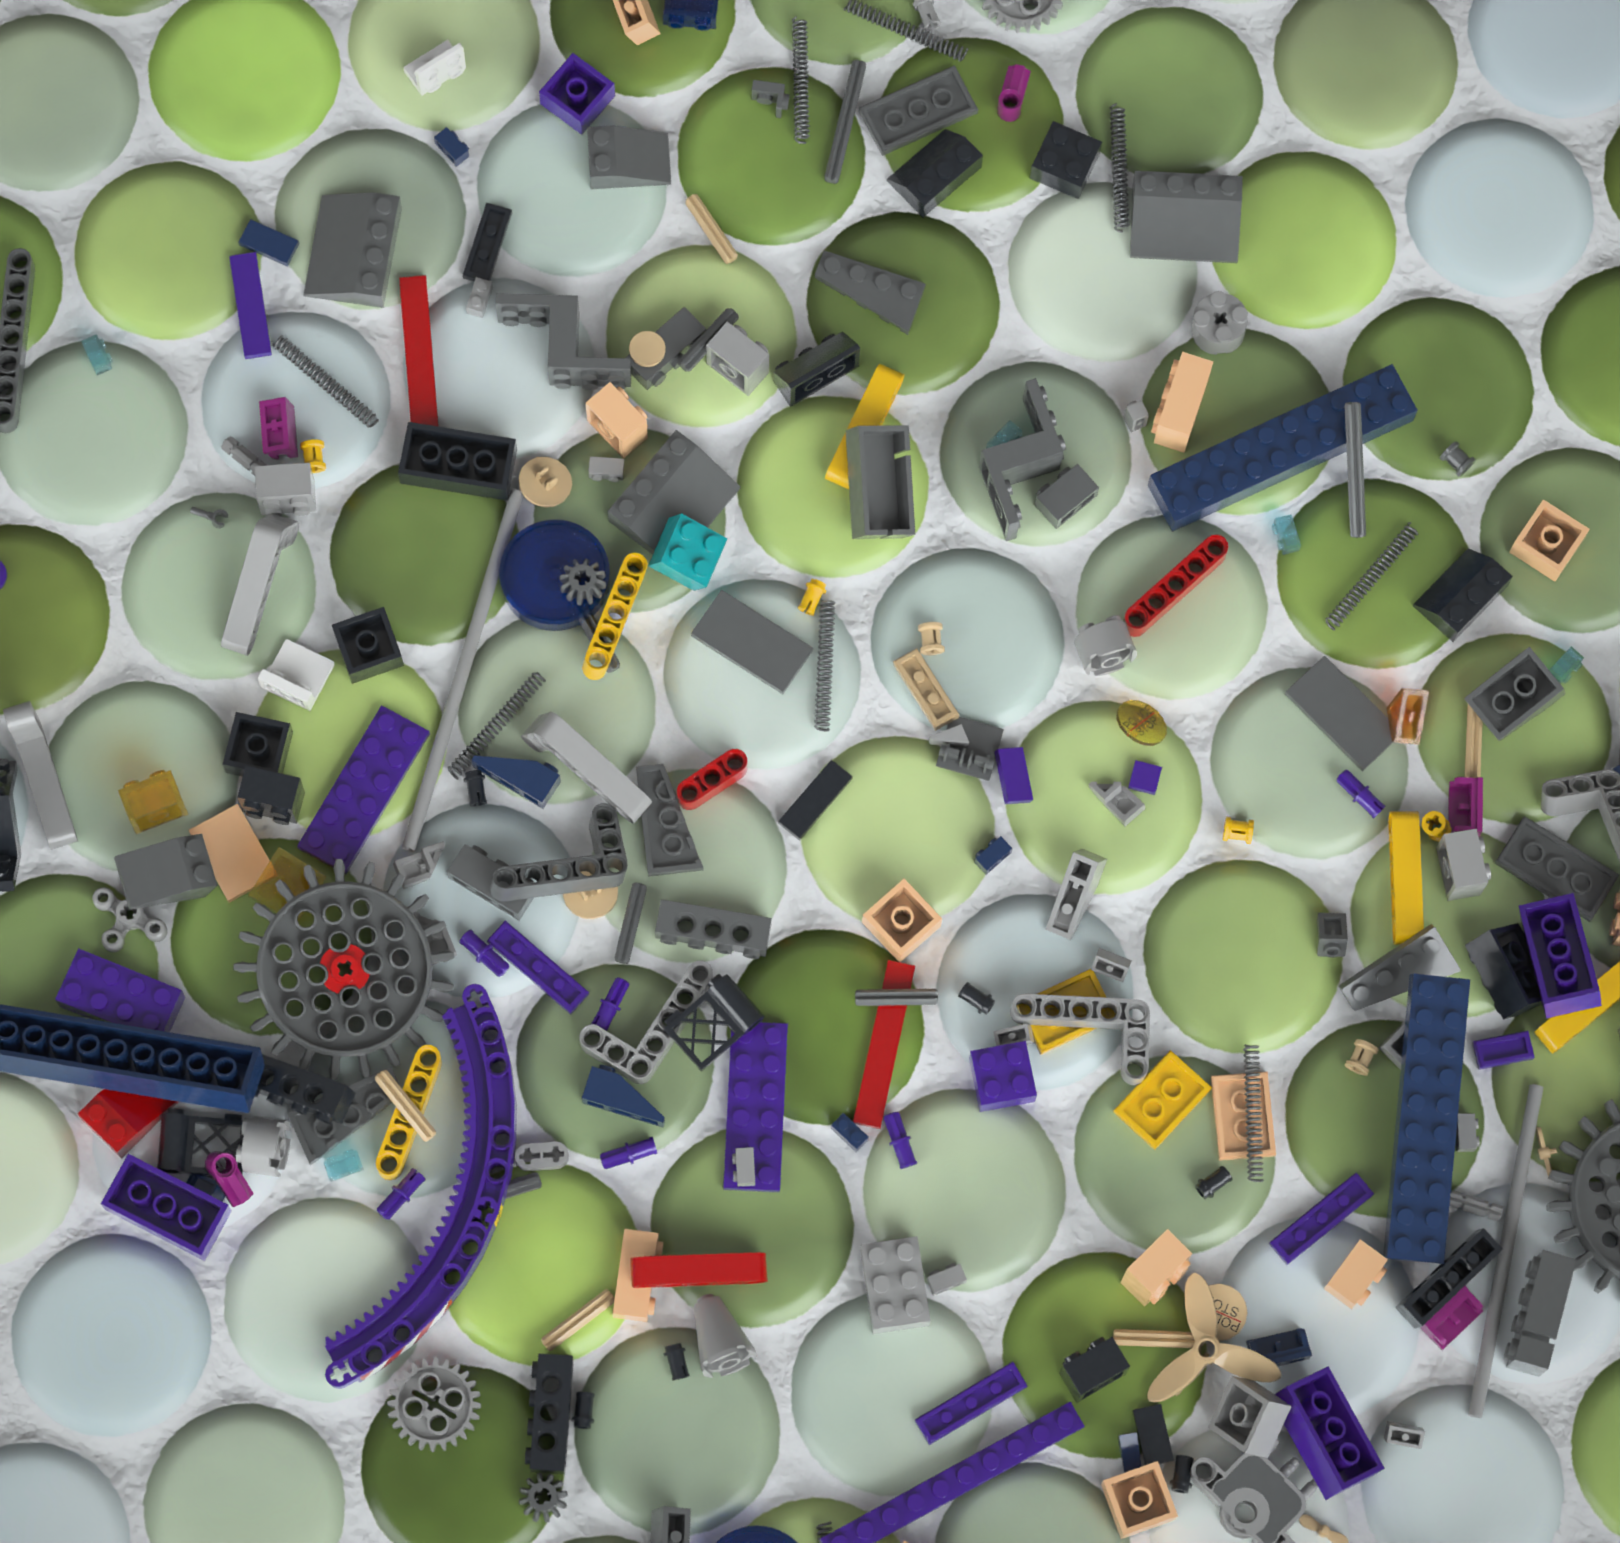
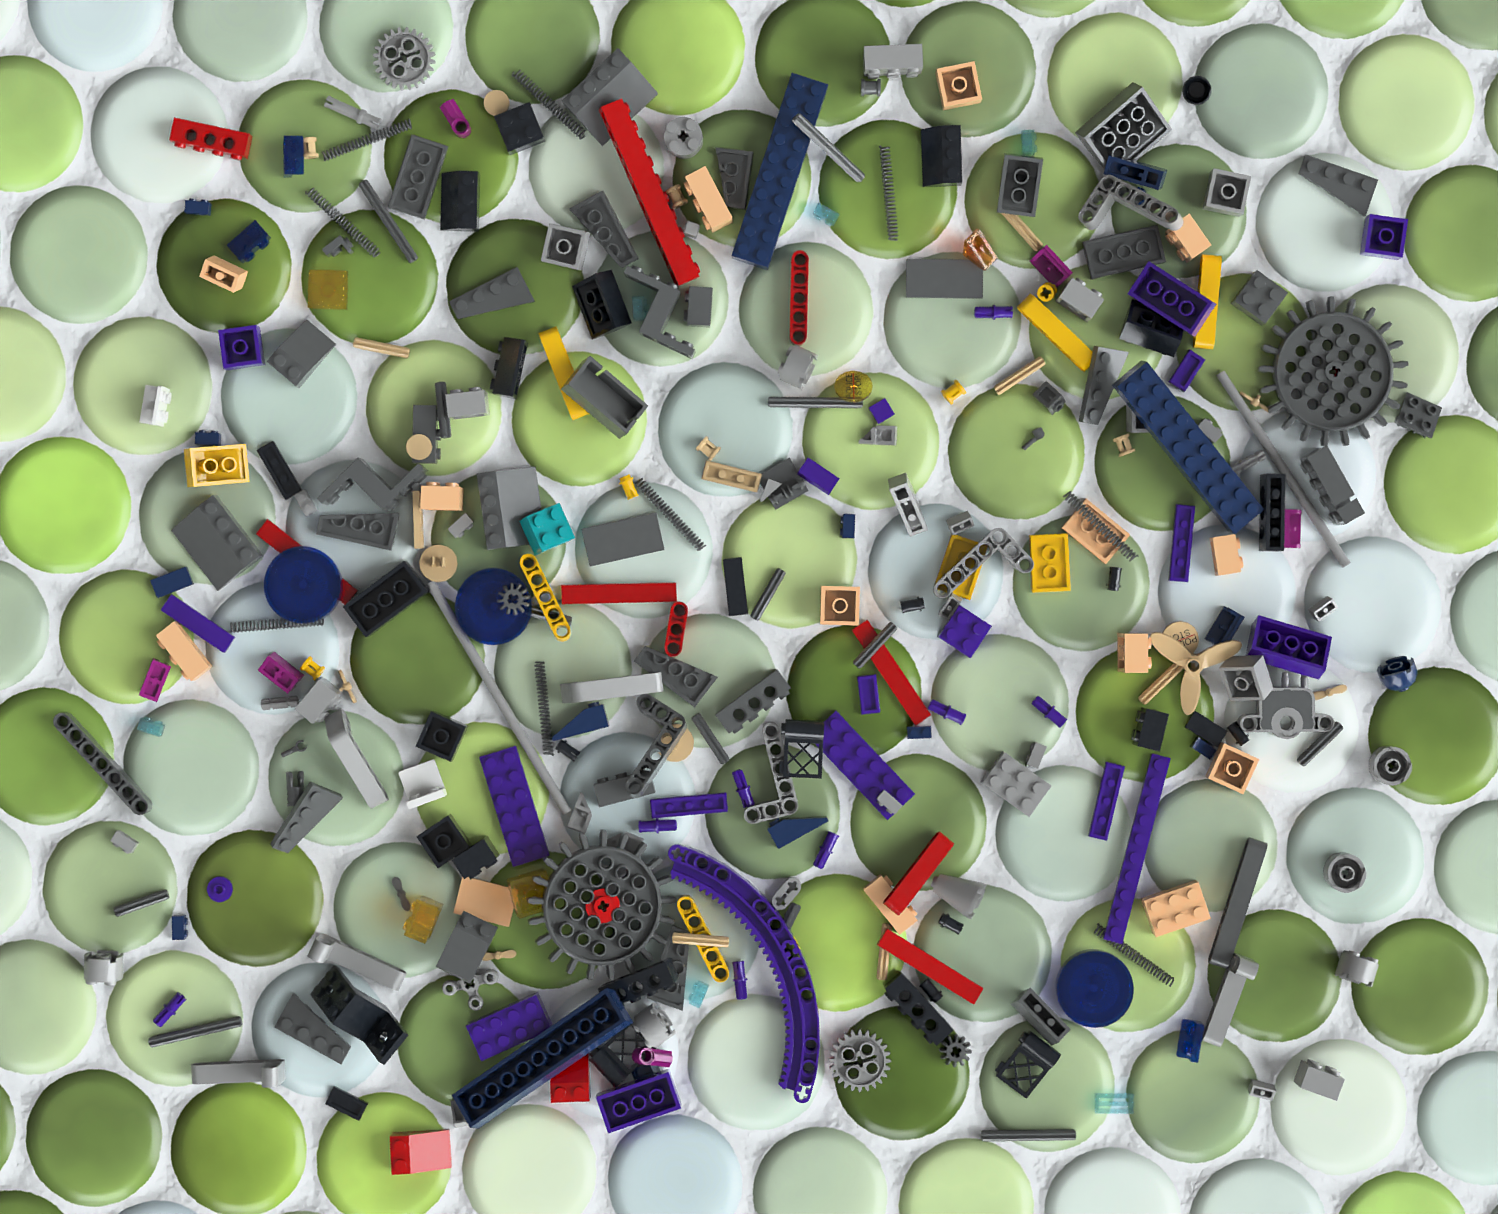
camera: 45 degrees left, 15 degrees up
(149, 312) = (154, 680): none -> magenta hinge
(156, 585) = (306, 814): none -> dark grey wing
(158, 759) = (401, 893): none -> dark grey piece
(165, 556) = (294, 792): none -> dark grey hinge
(187, 919) = (498, 955): none -> tan piece
(207, 315) = (183, 651): none -> light nougat brick
(327, 509) = (346, 686): none -> tan piece
(392, 367) = (303, 585): none -> clear blue brick
(432, 177) = (216, 465): none -> yellow slope
(509, 379) = (364, 529): none -> dark grey wing
(566, 423) = (418, 521): none -> tan tile
(609, 1382) = (930, 966): none -> red tile
(691, 689) = (619, 593): none -> red tile
(718, 126) = (328, 289): none -> clear yellow plate
(838, 1043) = (868, 694): none -> dark purple tile
(840, 840) = (768, 594): none -> dark grey axle
(972, 398) = (601, 304): none -> black slope
(993, 308) = (565, 246): none -> light grey brick
(1006, 1248) = (1049, 711): none -> dark purple axle
(1052, 331) = (603, 224): none -> dark grey wing
(1069, 114) = (496, 102): none -> tan piece
(1085, 701) = (812, 402): none -> dark grey axle
(1129, 340) = (649, 192): none -> red brick
(1153, 372) = (676, 196): none -> tan bush
(1236, 408) = (735, 173): none -> dark grey wing
(1282, 961) = (1038, 434): none -> dark grey hand
(1323, 882) = (1019, 375): none -> tan axle
(1506, 451) = (892, 61): none -> light grey brick

